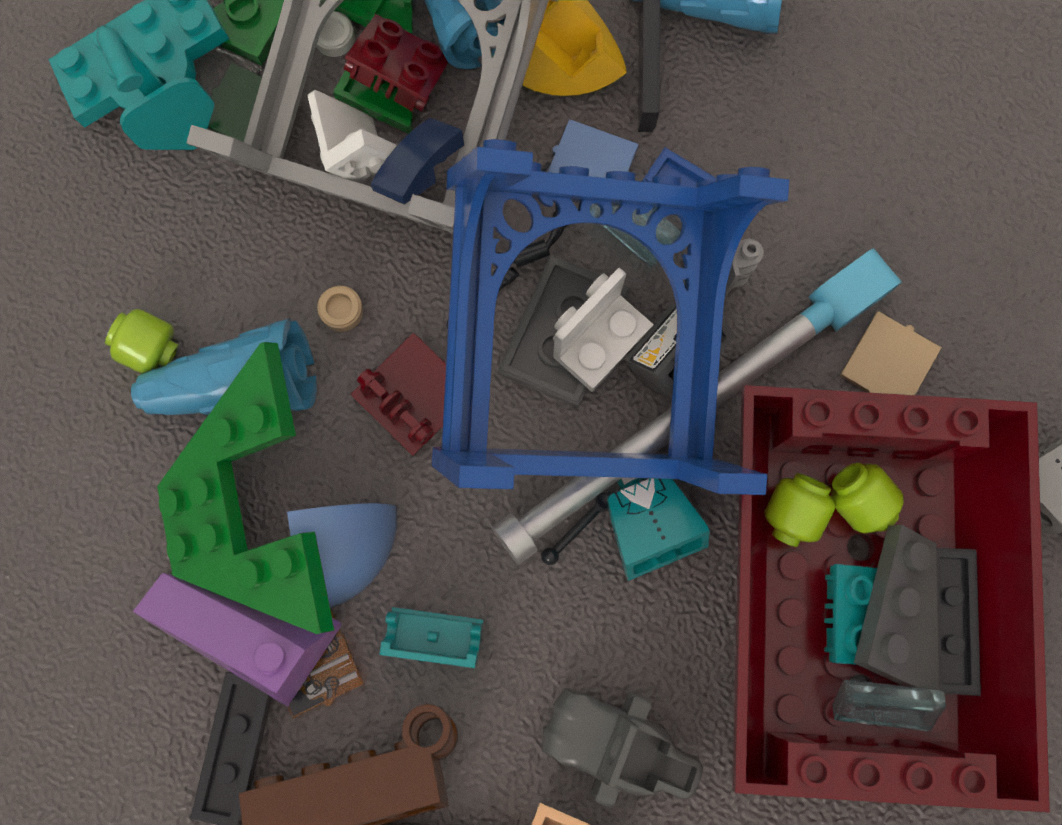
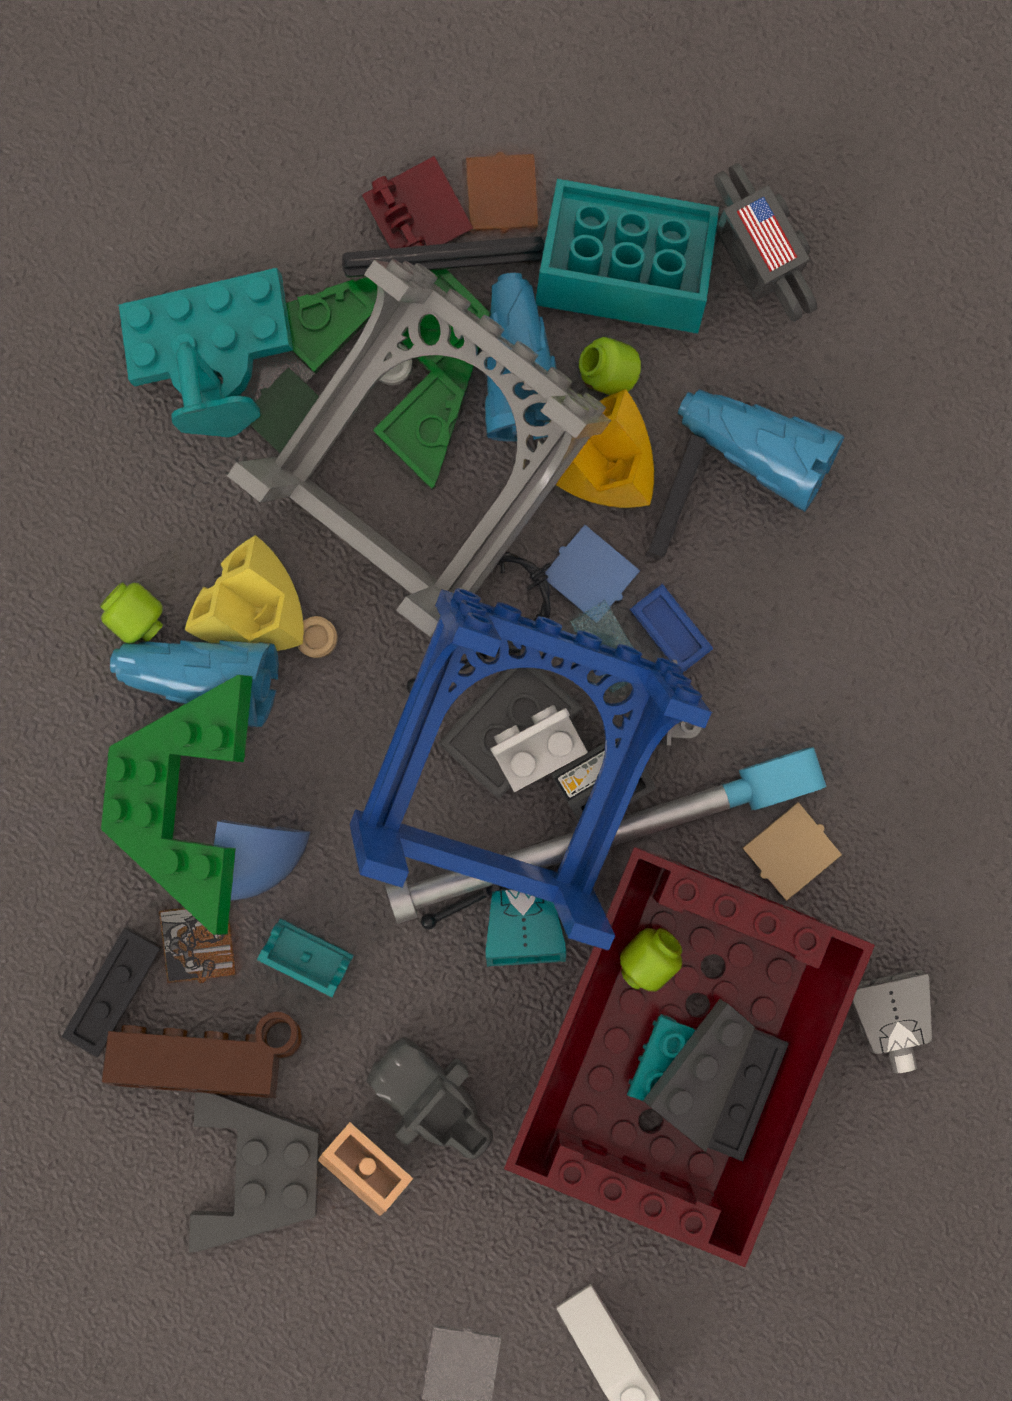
camera: 20 degrees right, 10 degrees up
(235, 636) = (136, 898): medium lavender wedge -> none
(258, 288) = (249, 601): none -> light yellow brick
(347, 139) = (374, 496): white bracket -> none
(397, 58) = (441, 426): dark red hinge -> none
(406, 393) = (352, 736): dark red hinge -> none
(412, 162) = (421, 541): dark blue slope -> none
(867, 497) = (711, 969): lime head -> none
(888, 705) = (661, 1143): clear light blue tile -> none

